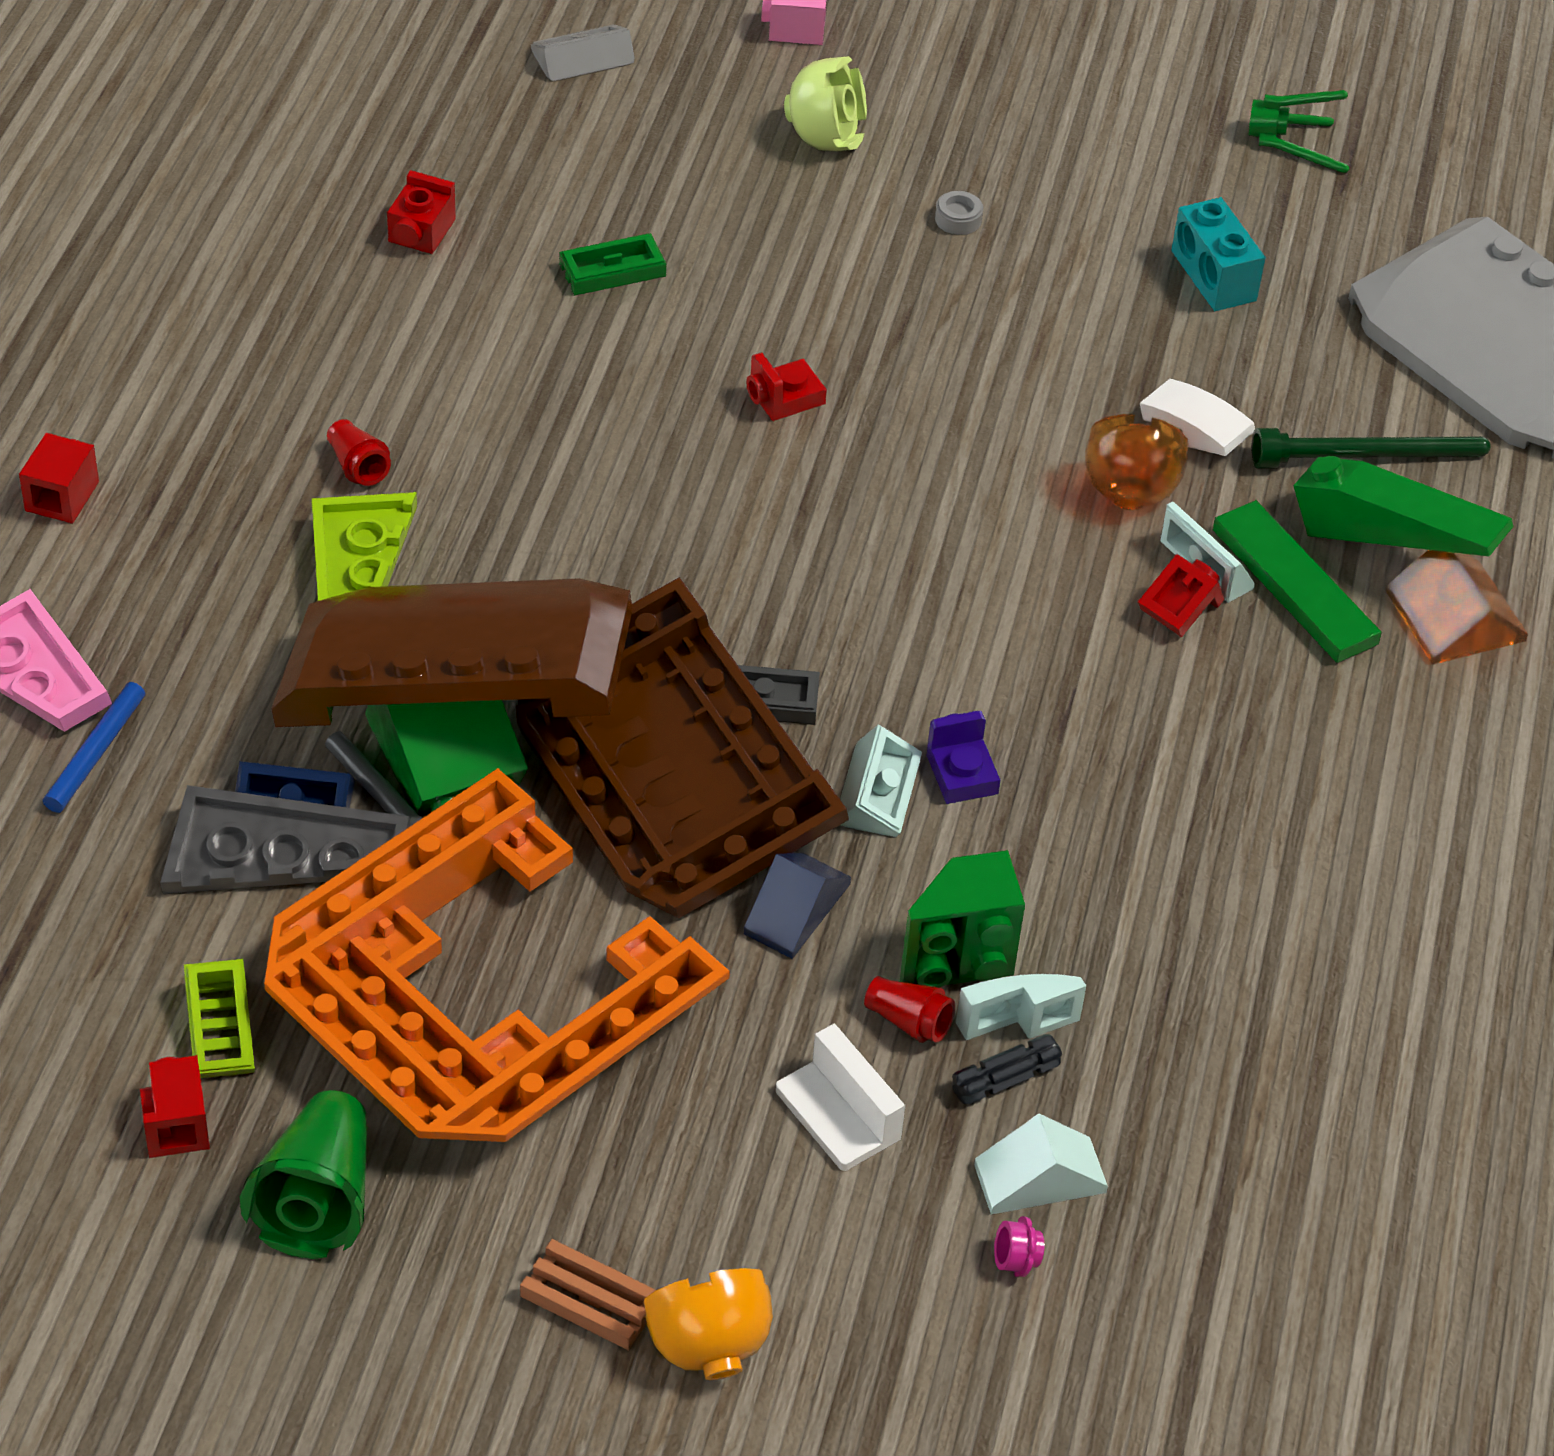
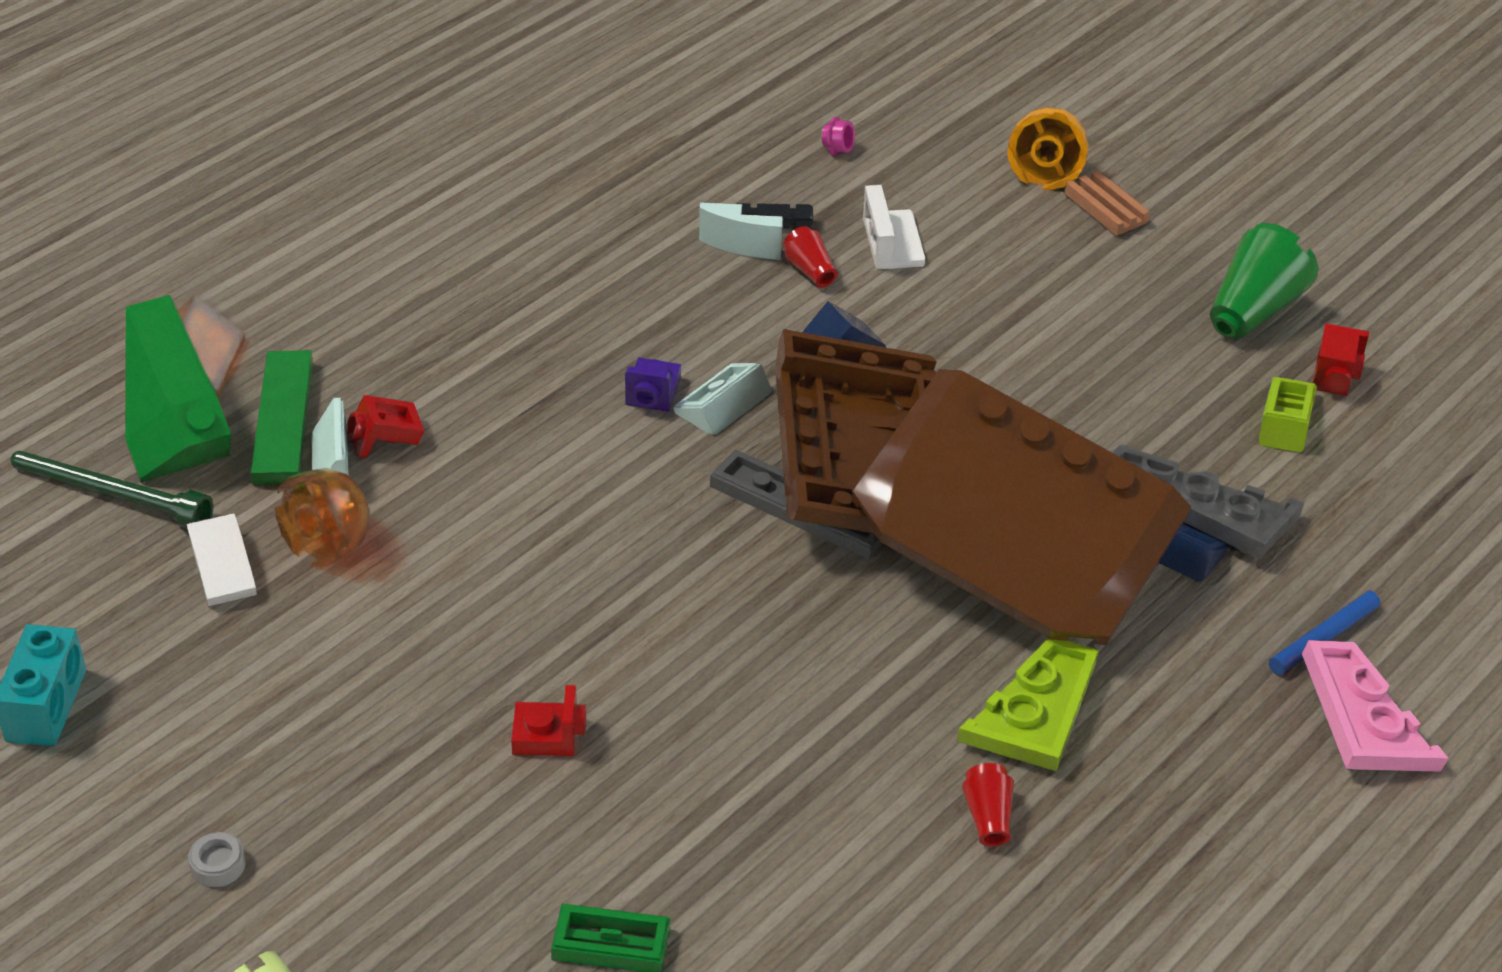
camera: 150 degrees left, 5 degrees down
(59, 478) = (1293, 876): red brick -> none
(353, 941) = (1152, 301): orange slope -> none
(965, 923) = (753, 257): green slope -> none
(1039, 1167) = (794, 163): light aqua slope -> none

